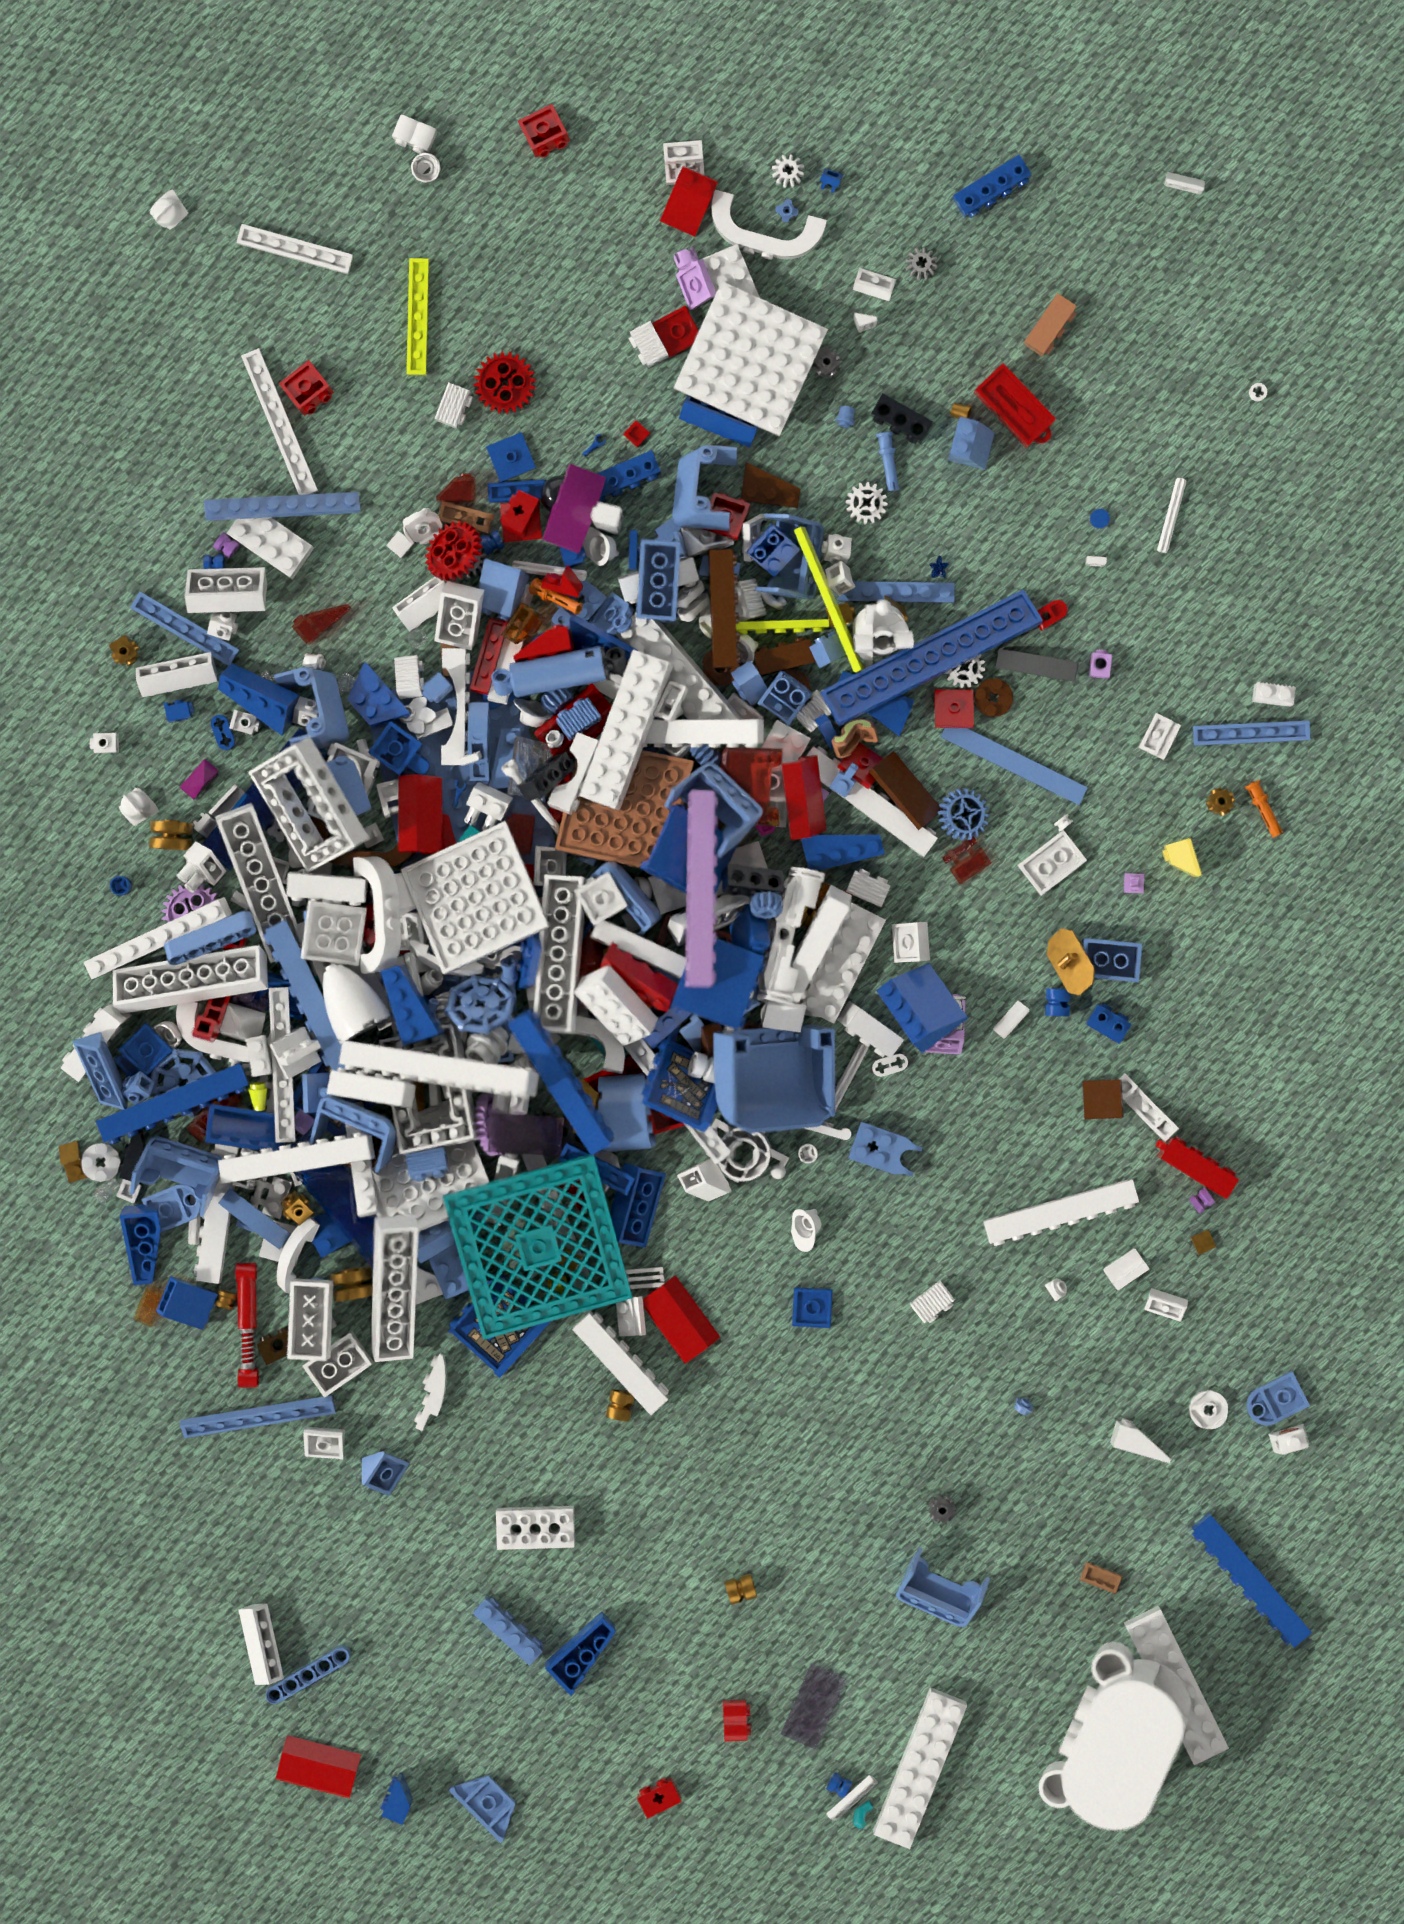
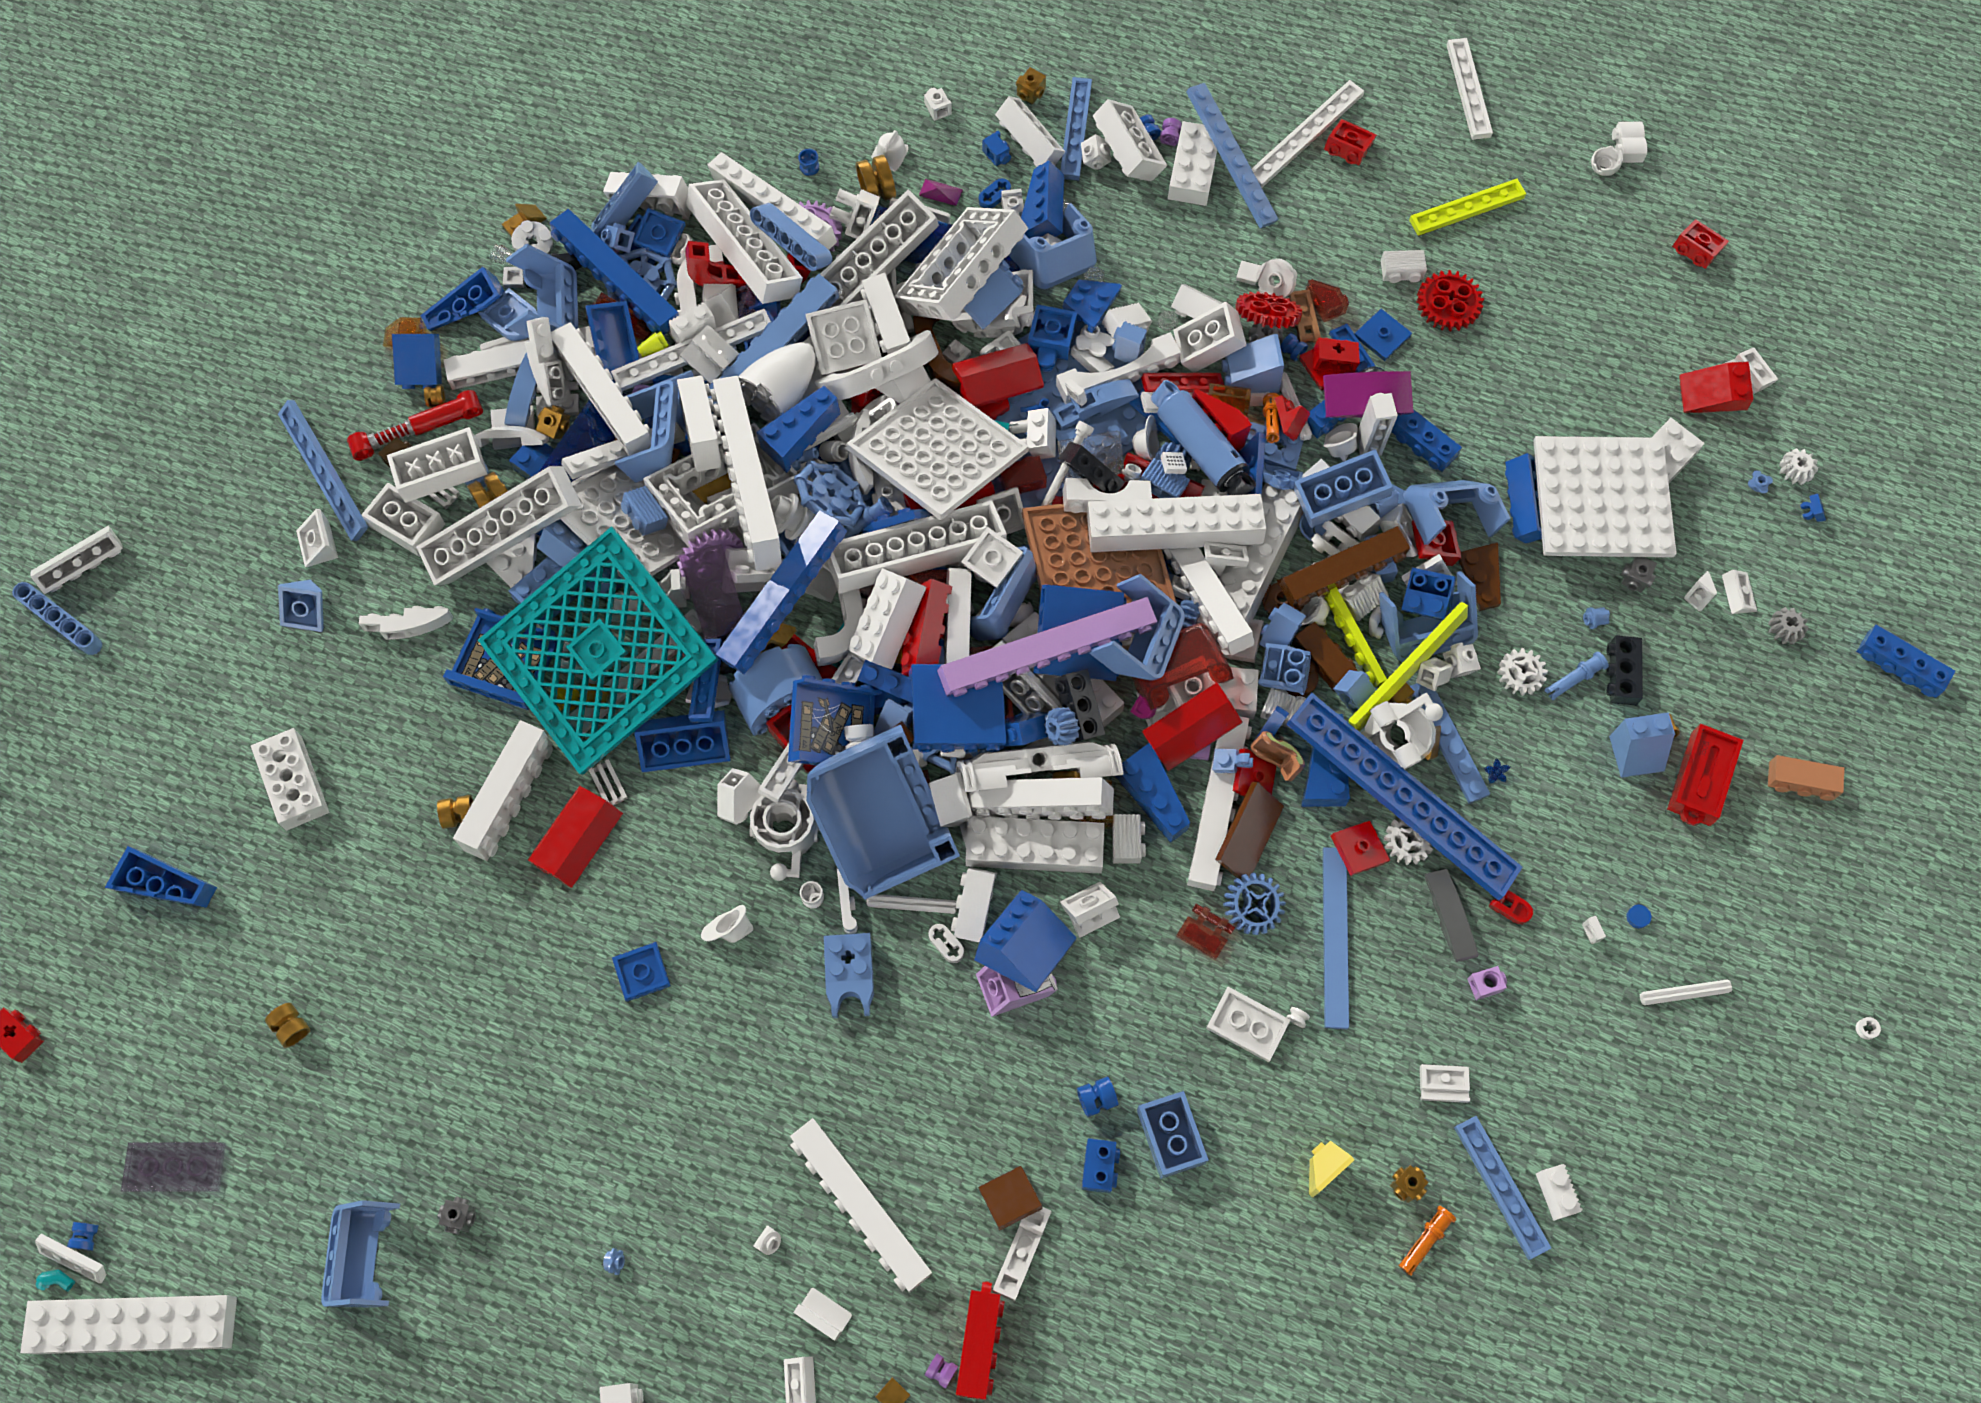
camera: 70 degrees right, 20 degrees down
(247, 1197) = (542, 360): none -> white slope
(314, 661) = (1101, 242): white hose -> none
(316, 623) = (1138, 230): clear red slope -> none
(508, 1630) = (164, 796): medium blue brick -> none
(569, 705) = (1173, 463): none -> white tile
(594, 445) = (1438, 403): blue hand -> none
(631, 1317) = (559, 784): white plate -> none
(636, 433) = (1467, 434): red tile -> none
(648, 344) = (1559, 409): white brick -> none
(676, 331) = (1586, 424): red plate -> none
(693, 278) = (1649, 419): lavender plate -> none
(735, 1720) = (129, 1083): red brick -> none
(759, 243) = (1716, 473): white arch -> none
(932, 1302) = (698, 1102): white brick -> none
(991, 708) = (1405, 882): reddish brown plate -> none
(1011, 1019) = (1054, 1055): white slope -> none
(1070, 961) = (1149, 1088): pearl gold shield -> none
(1133, 883) = (1269, 1127): lavender tile -> none

